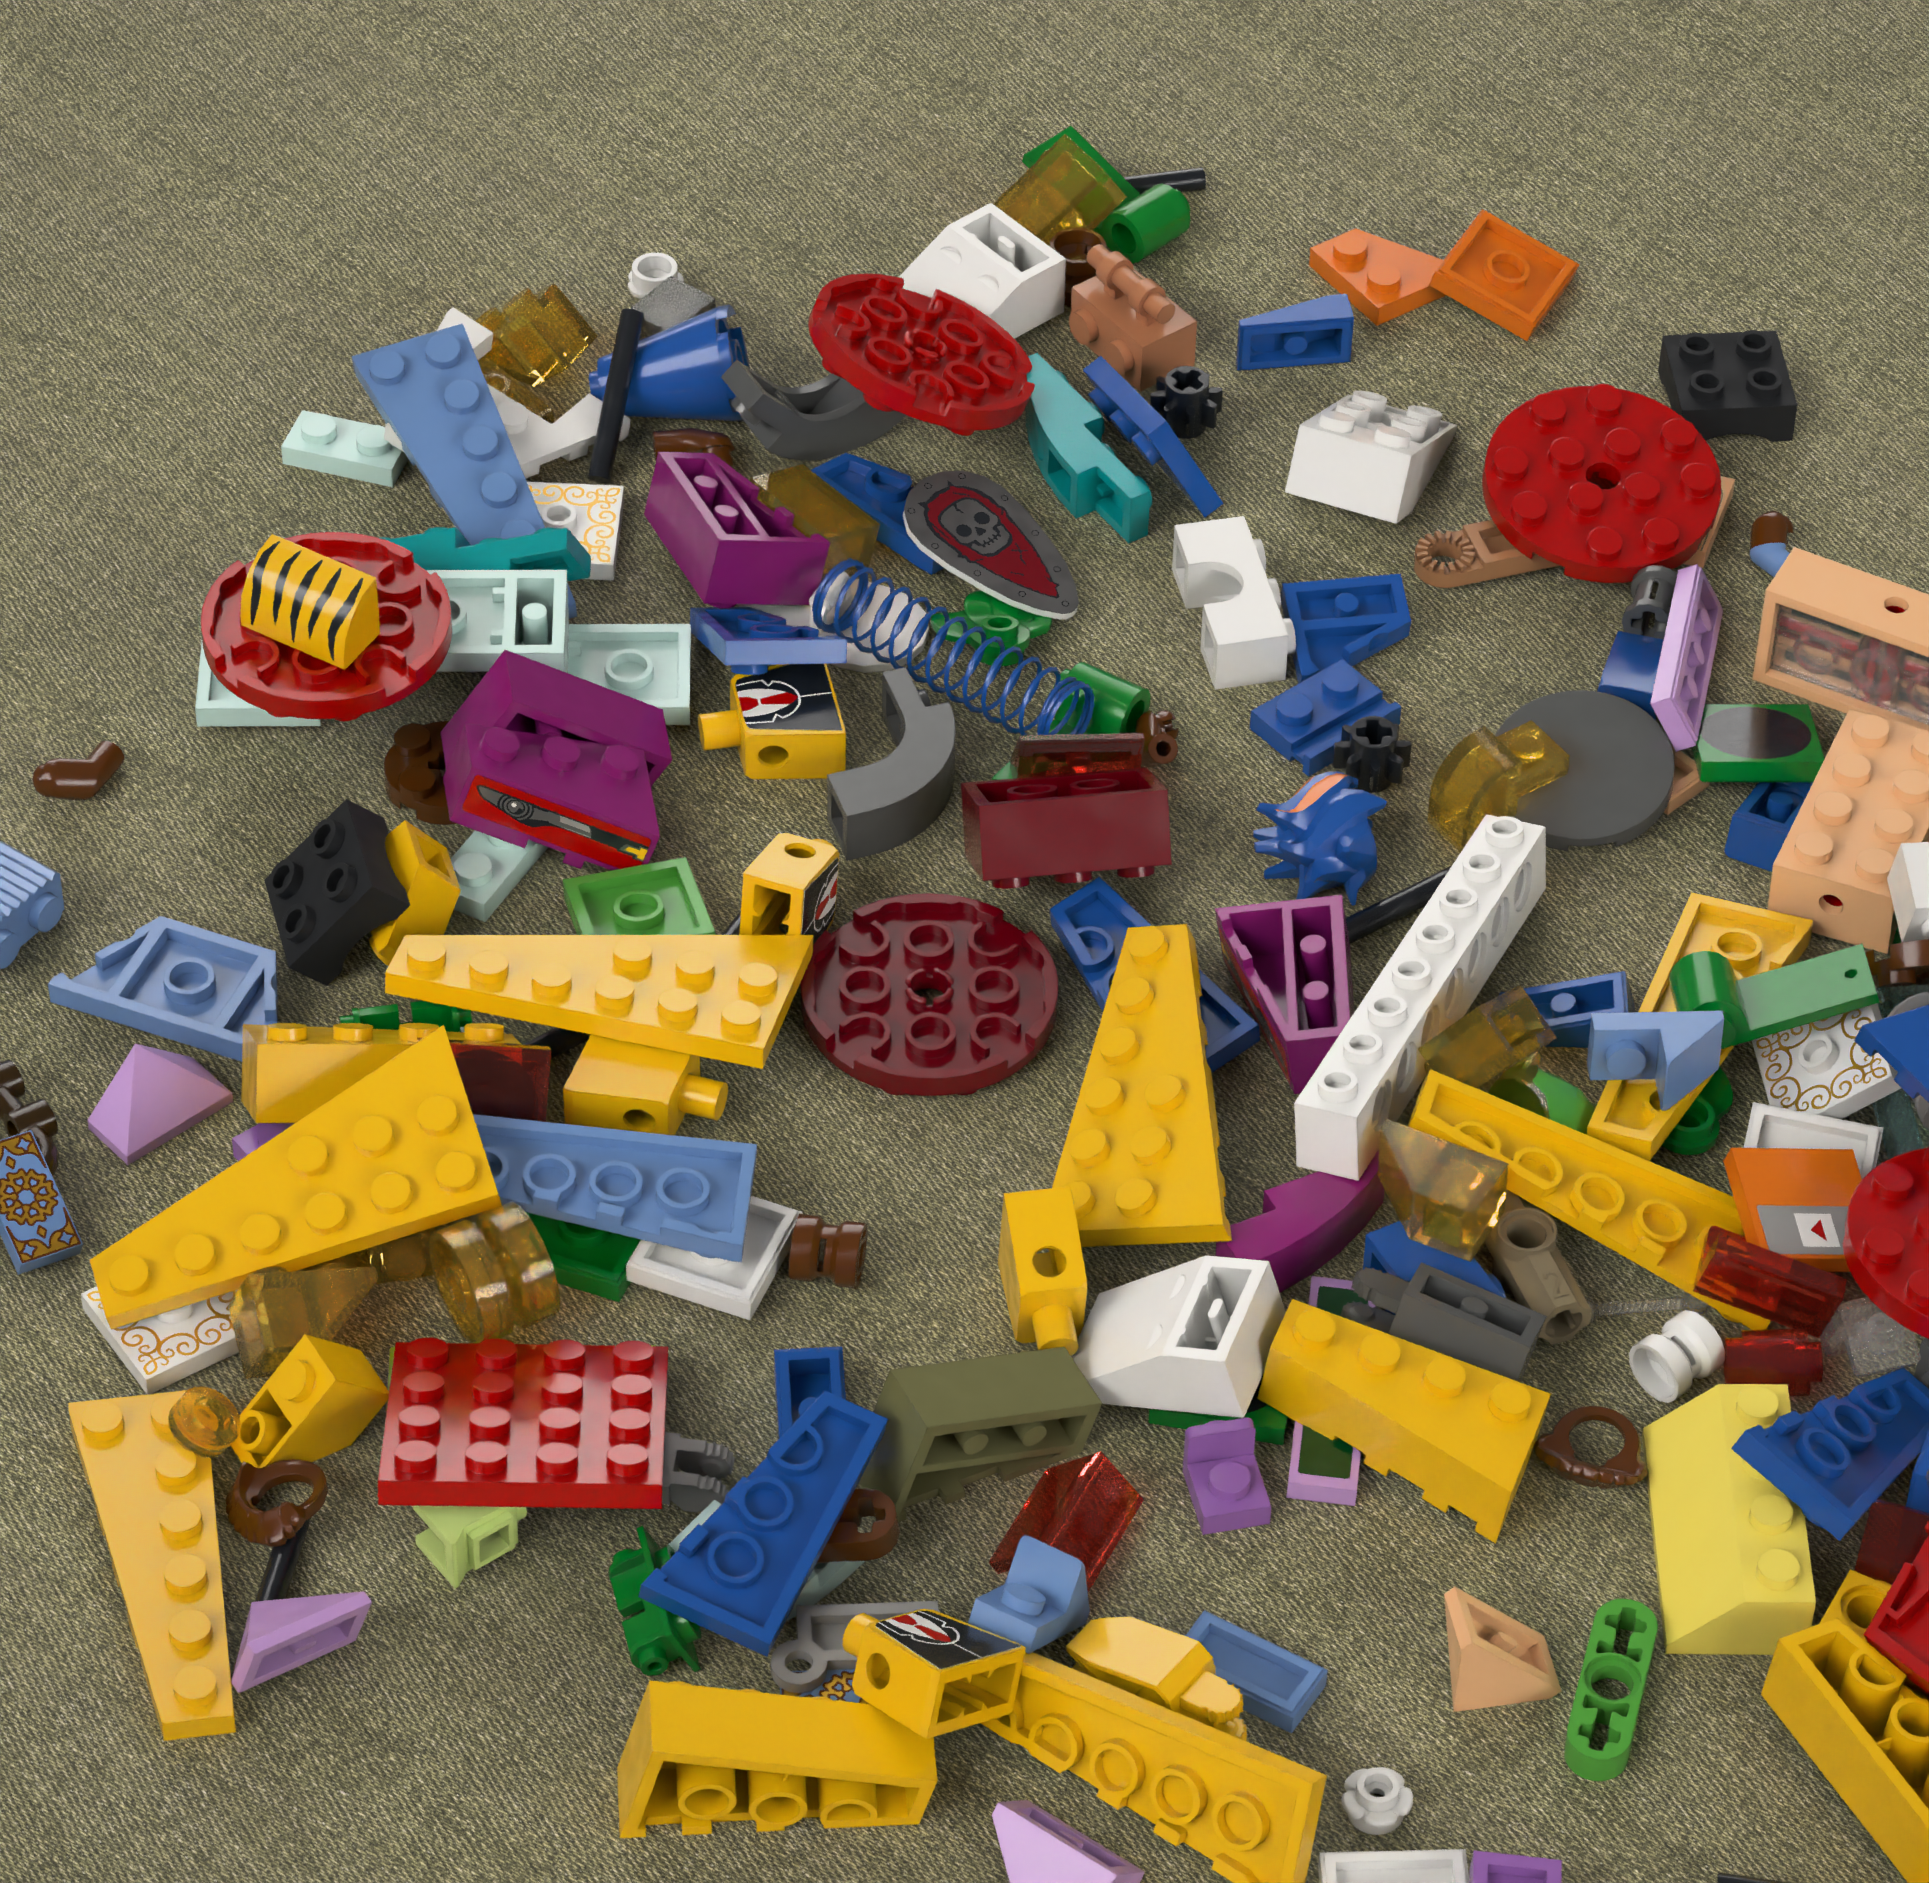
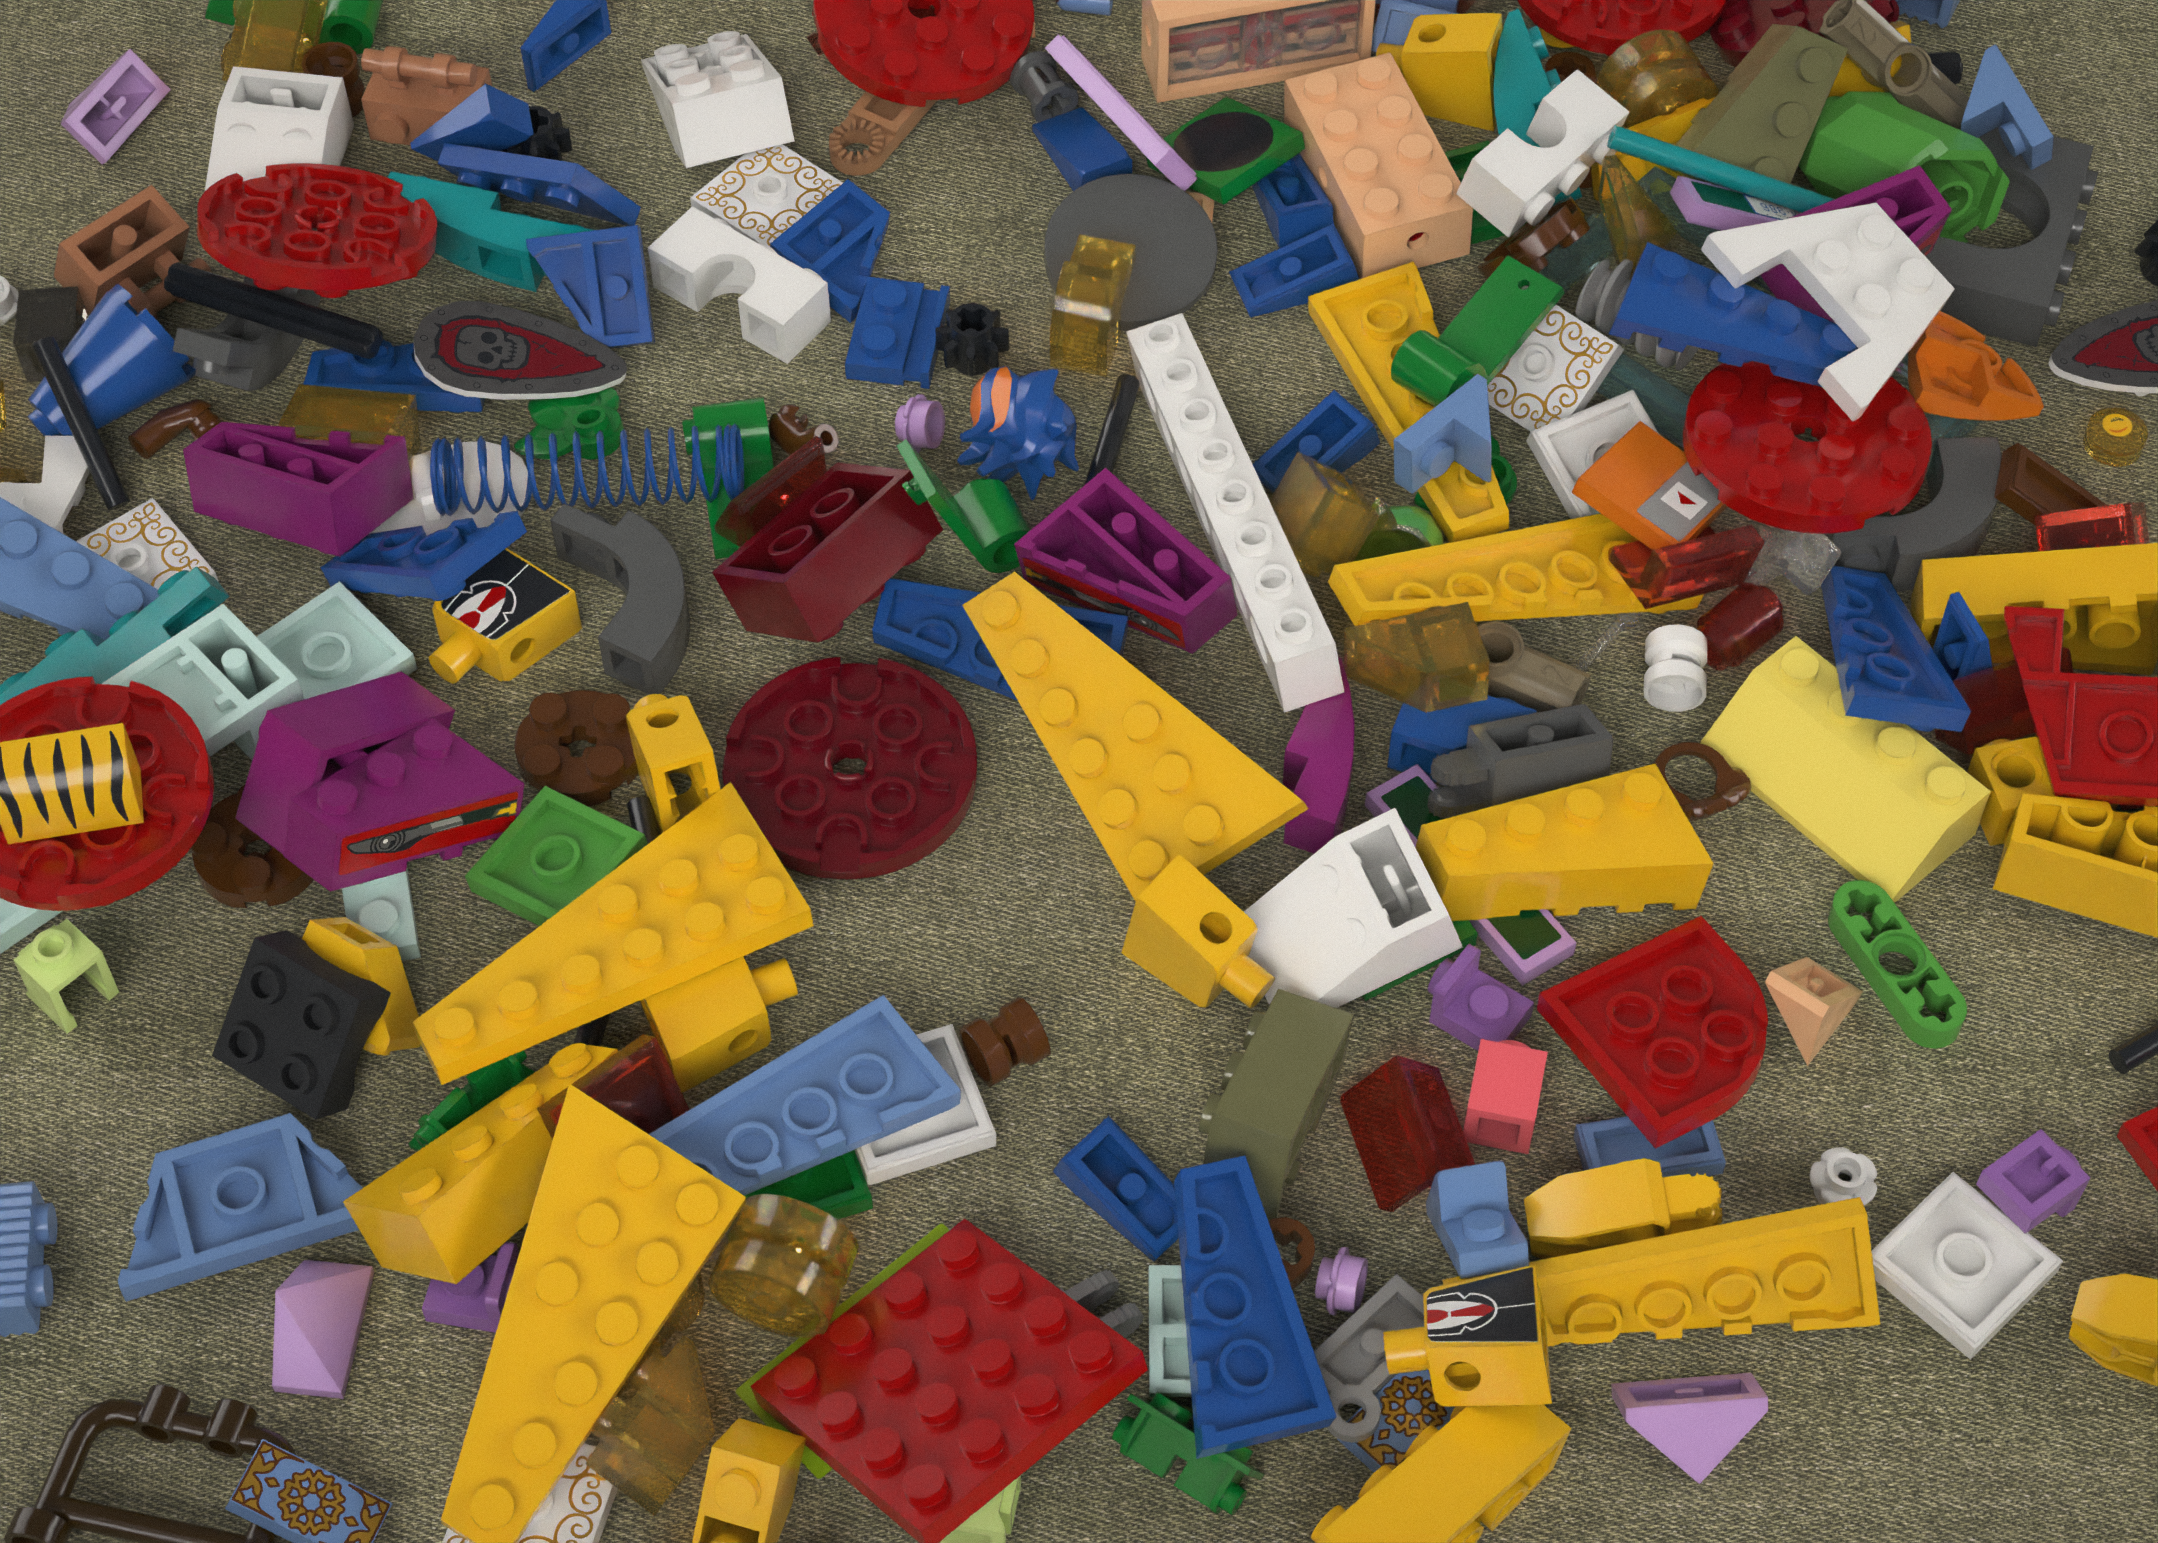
camera: 40 degrees left, 10 degrees up
(222, 747) = (54, 962): none -> yellowish green window
(723, 832) = (573, 717): none -> reddish brown plate
(774, 300) = (129, 250): none -> nougat brick
(837, 400) = (273, 310): none -> black axle
(892, 191) = (114, 106): none -> lavender slope
(897, 1579) = (1342, 1281): none -> lavender plate
(1113, 532) = (601, 282): none -> blue wing
(1140, 354) = (482, 120): none -> blue slope
(1166, 1548) = (1504, 1095): none -> coral brick
(1202, 875) = (980, 514): none -> green door
(1260, 785) = (920, 422): none -> lavender plate
(1329, 546) = (765, 192): none -> white plate
(1350, 1592) = (1666, 1028): none -> red plate
(1710, 870) = (1294, 272): none -> blue slope

